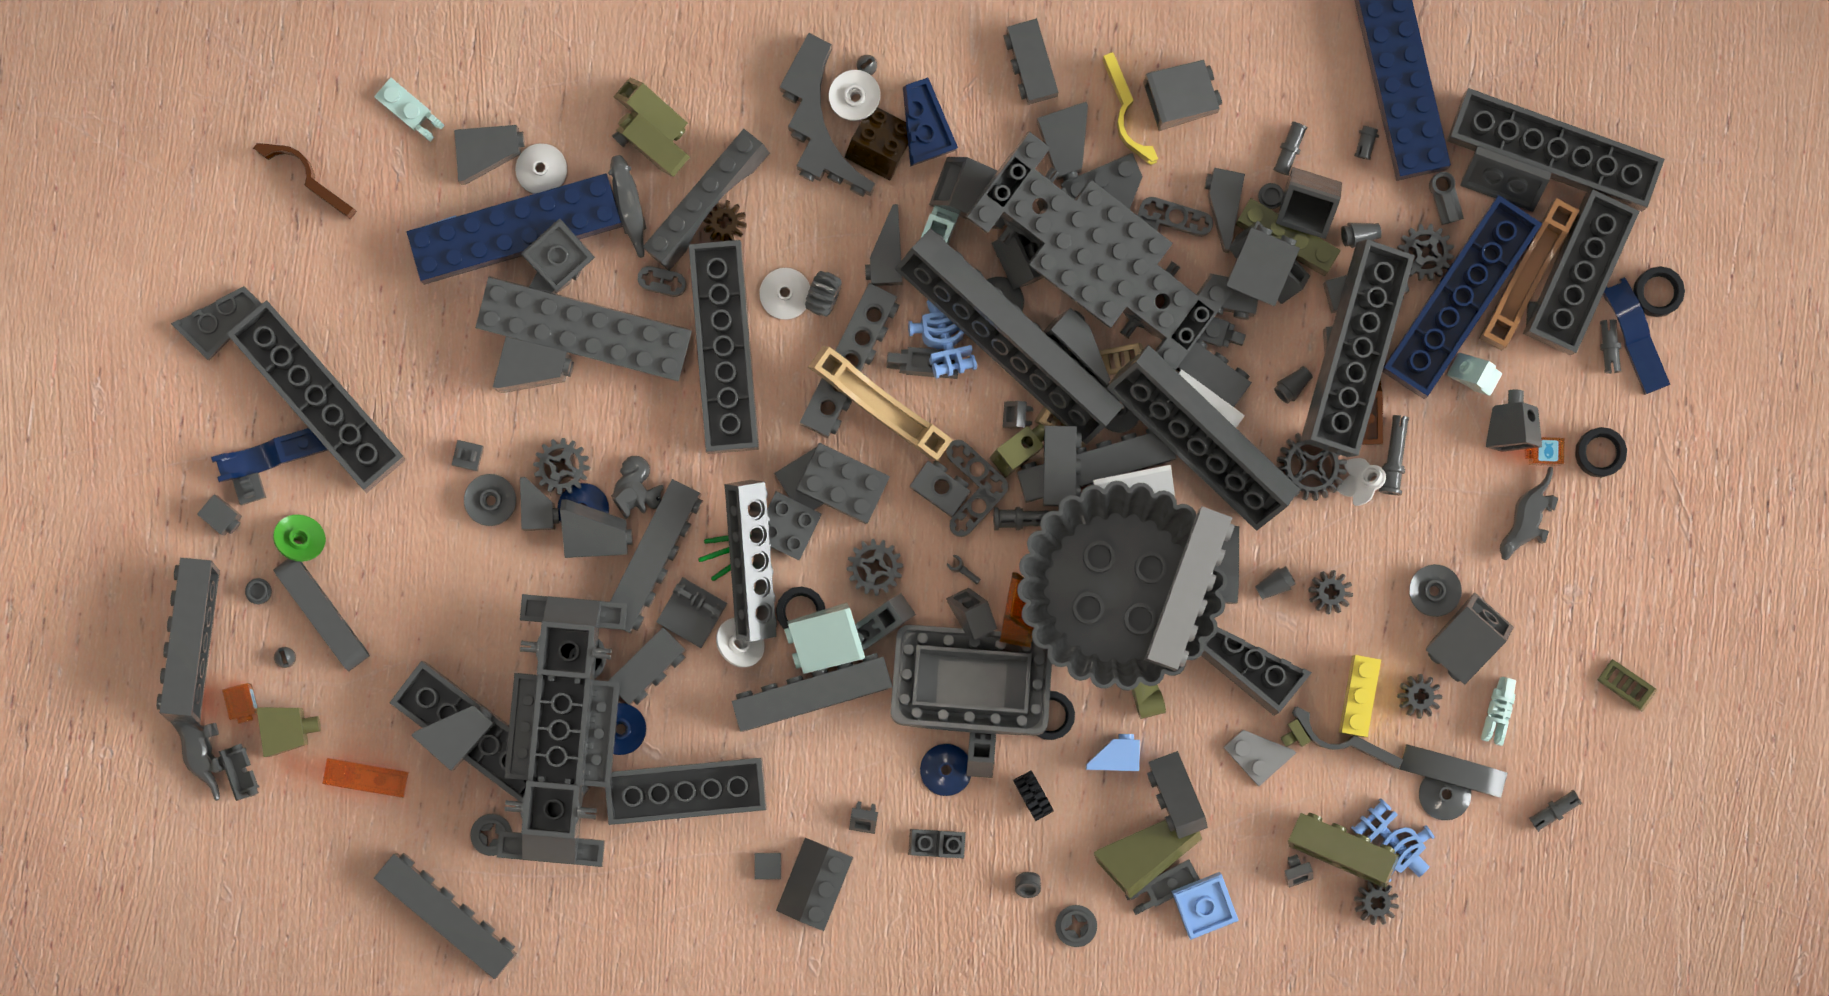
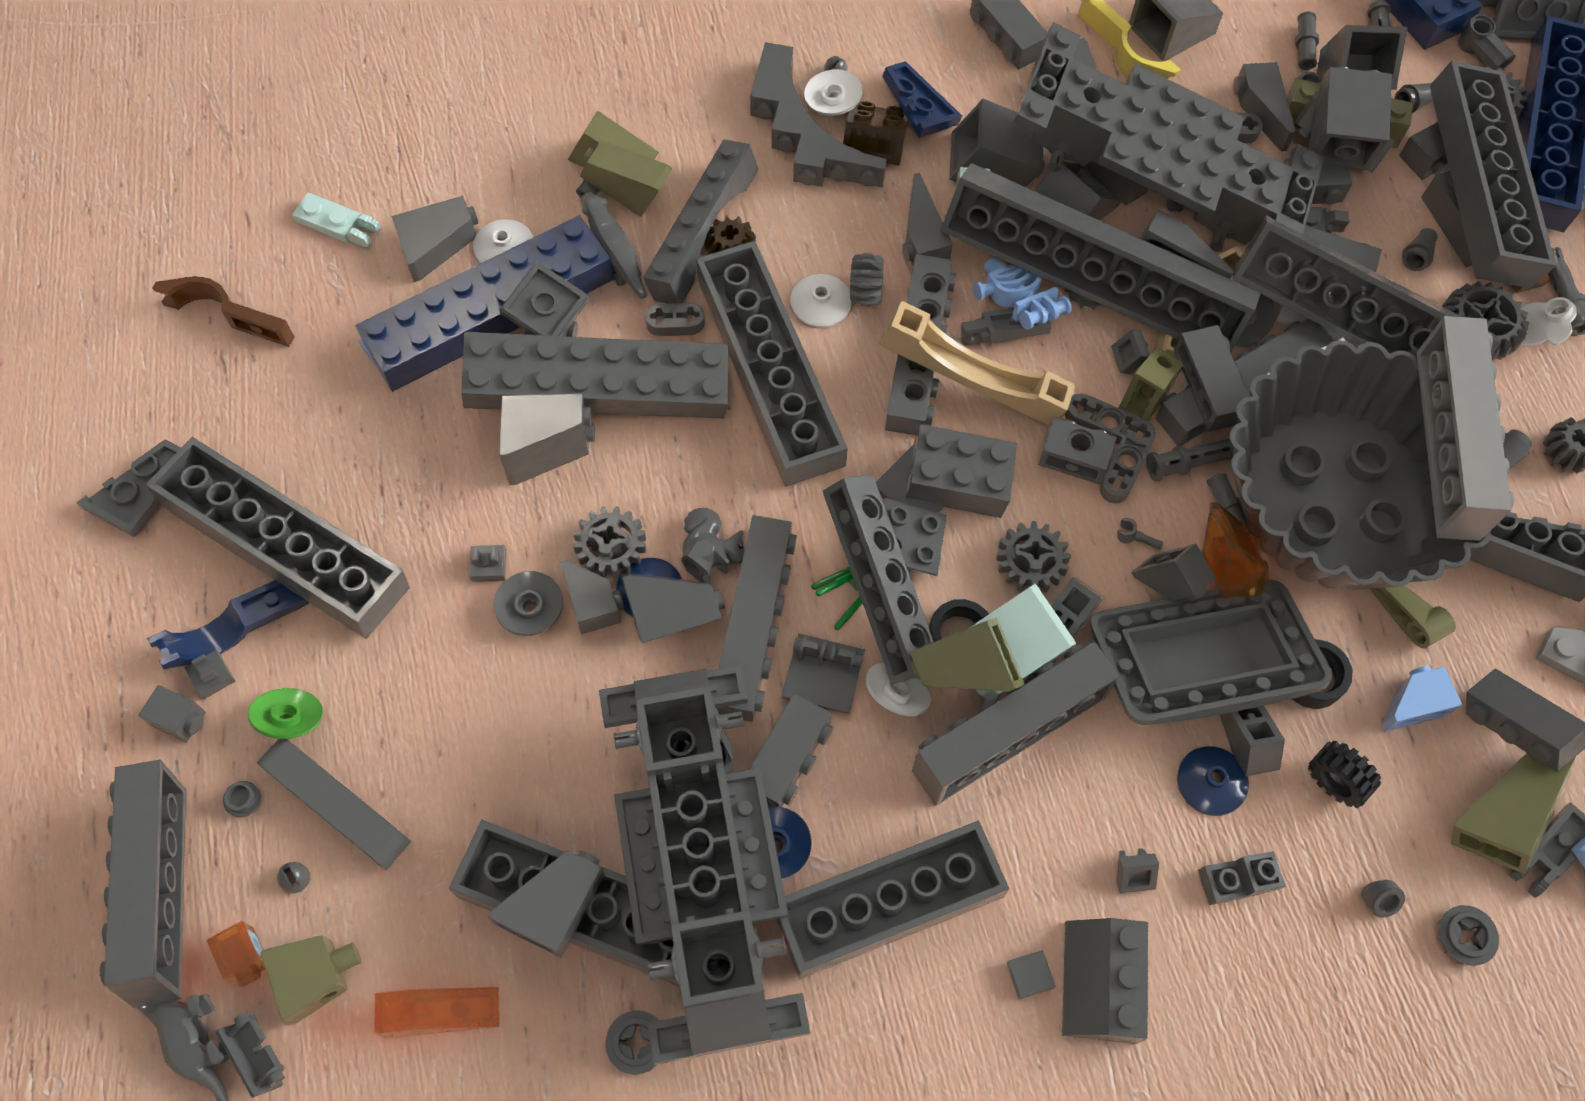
camera: 20 degrees left, 20 degrees down
(787, 647) = (969, 660): none -> olive slope

